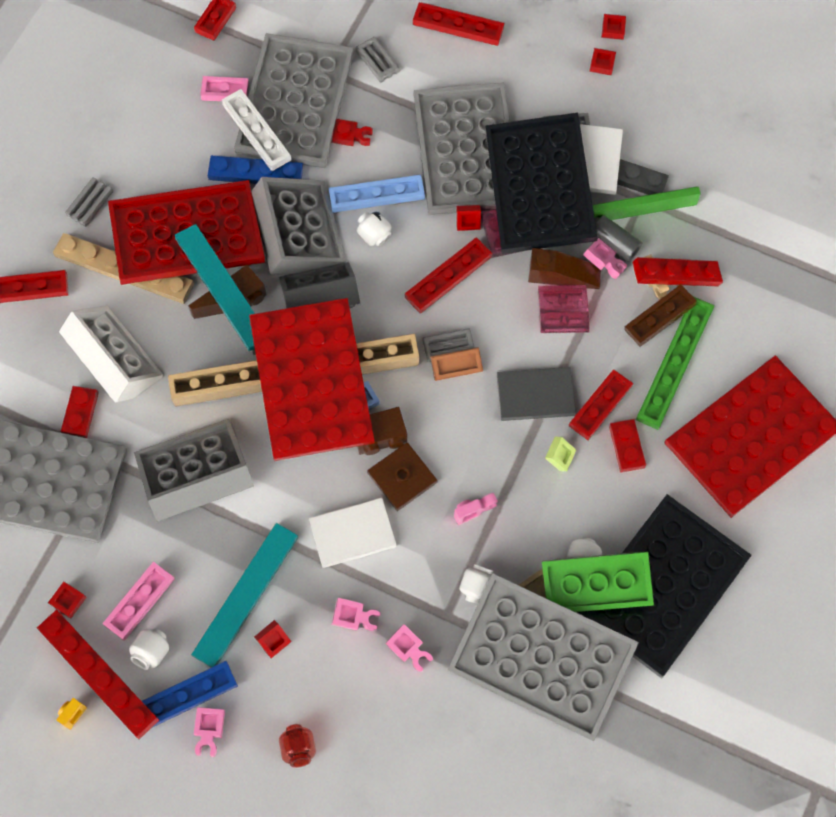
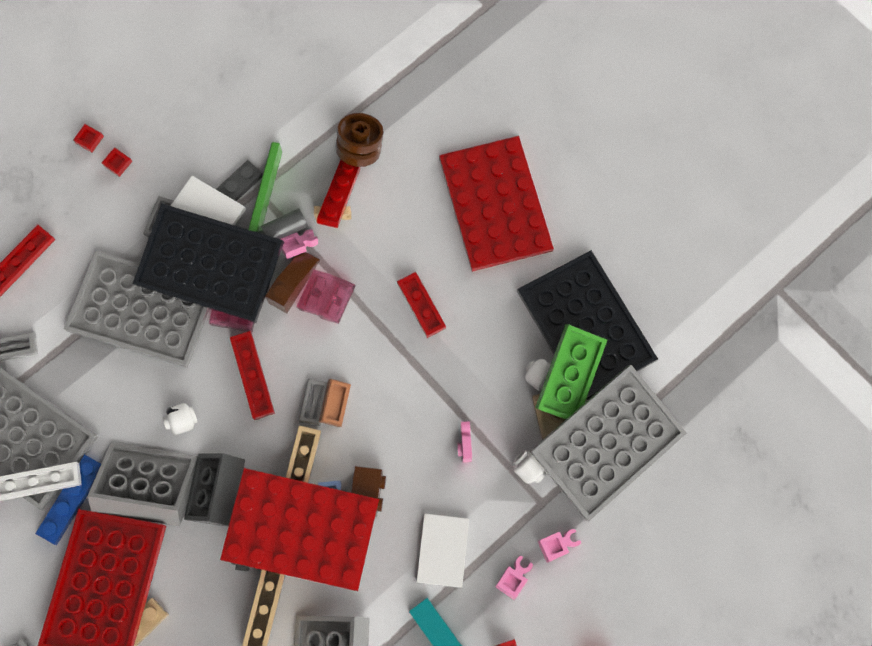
camera: 65 degrees left, 5 degrees up
(218, 282) = (170, 575): teal tile -> none
(248, 284) = (183, 566): reddish brown slope -> none
(347, 133) = (74, 403): red plate -> none
(376, 193) = (146, 403): light blue plate -> none
(402, 476) = (412, 489): reddish brown plate -> none
(468, 217) = (208, 335): red plate -> none
(535, 394) = (388, 351): dark grey tile -> none
(560, 453) = (449, 354): yellowish green plate -> none
(627, 445) = (463, 300): red plate -> none
(660, 315) = (367, 224): reddish brown plate -> none
(674, 364) = (410, 232): bright green tile -> none
(746, 266) = (359, 139): none -> reddish brown wheel

